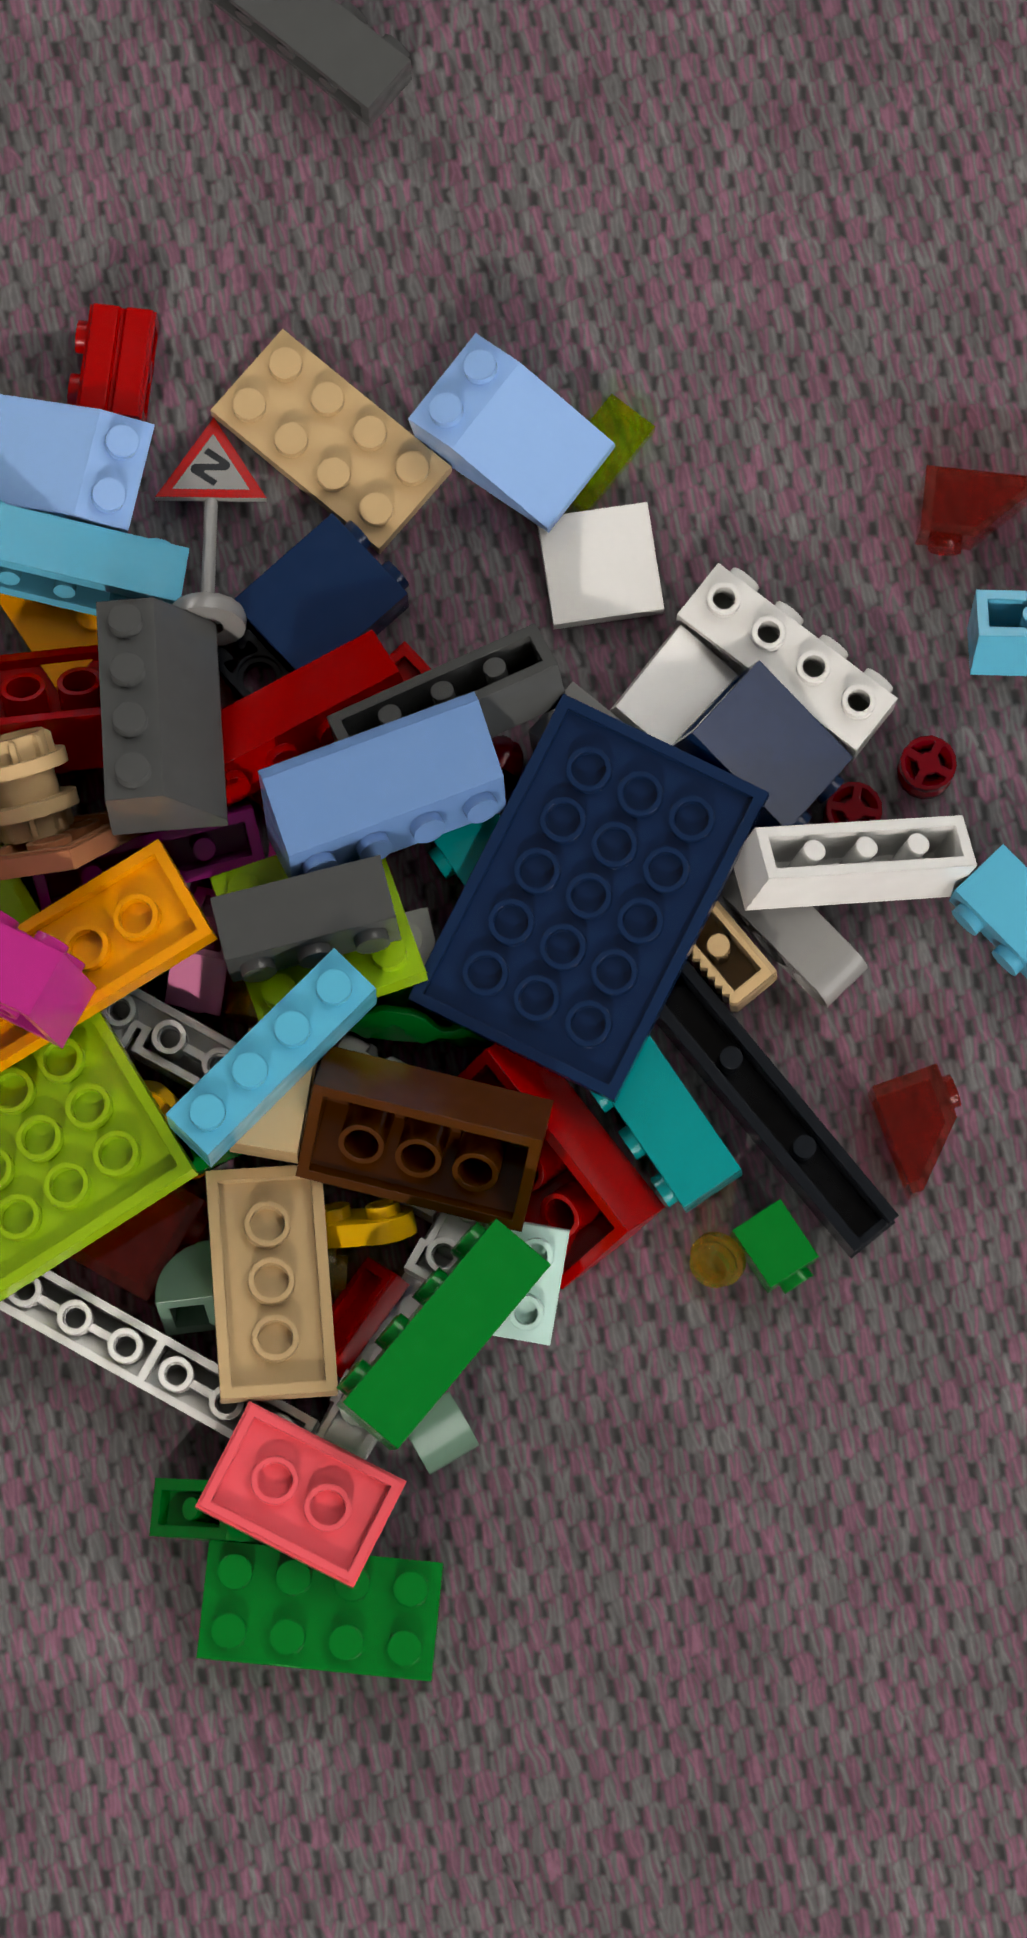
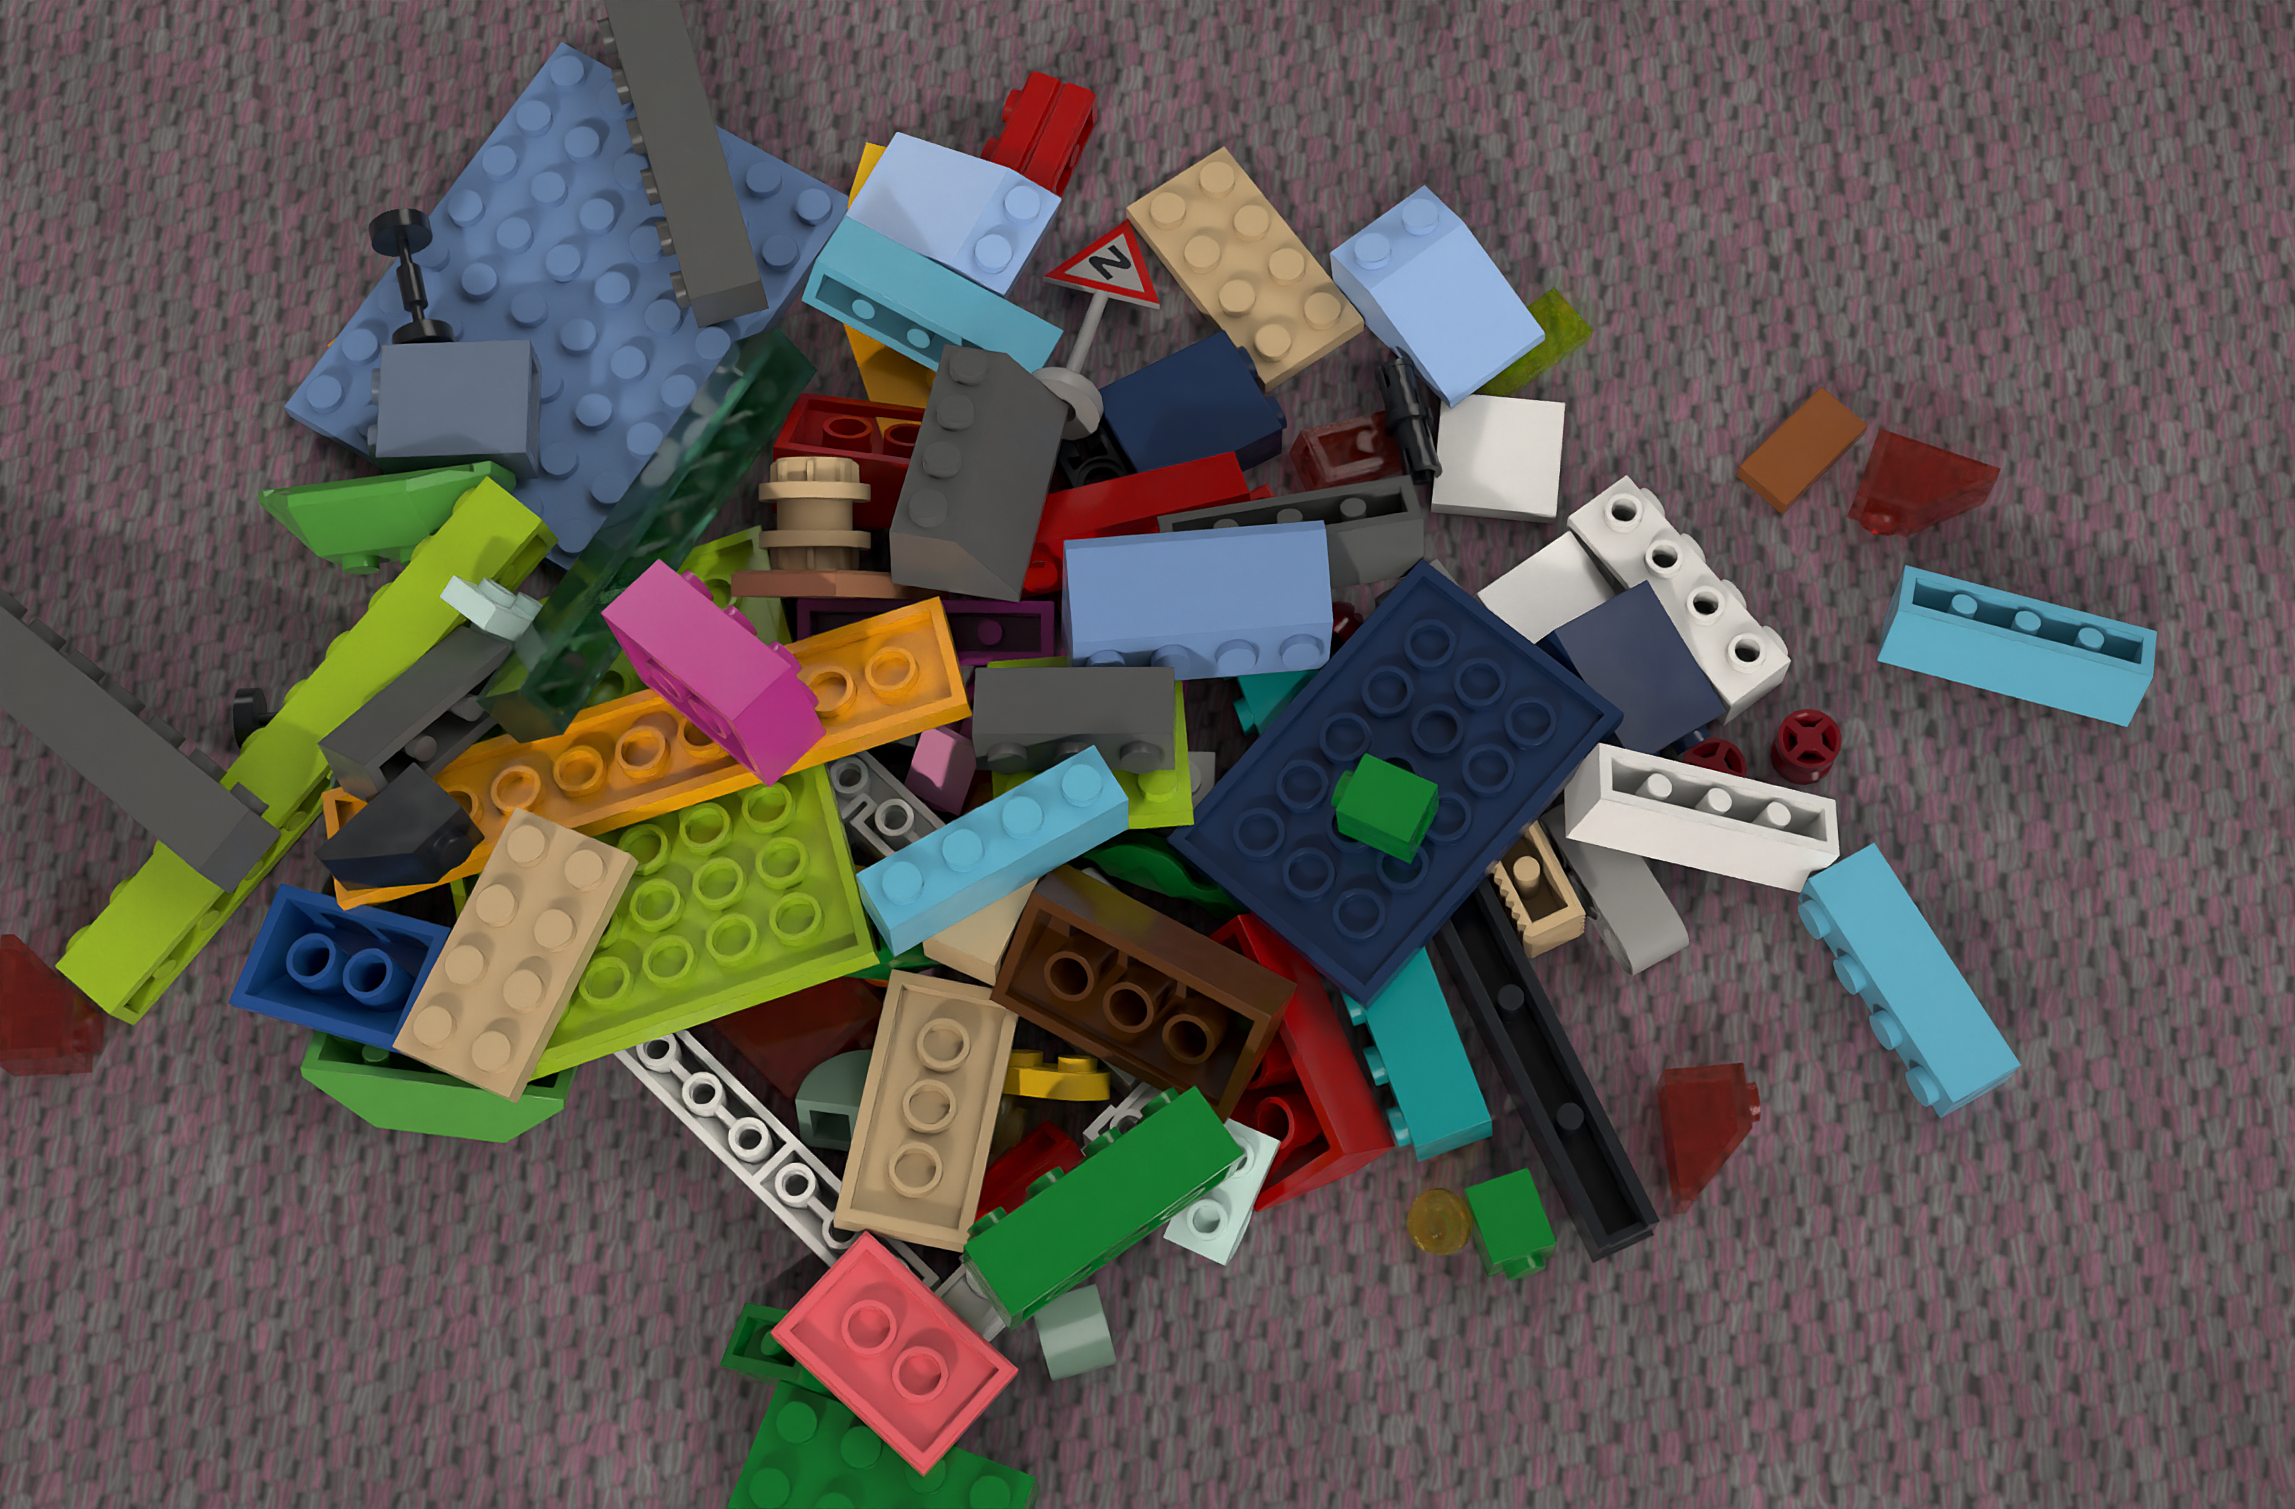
camera: 20 degrees right, 10 degrees down
(476, 590) = (1345, 453): none -> clear red slope
(515, 555) = (1408, 421): none -> black pin
(588, 929) = (1385, 807): none -> green brick
(862, 493) = (1801, 450): none -> dark orange tile

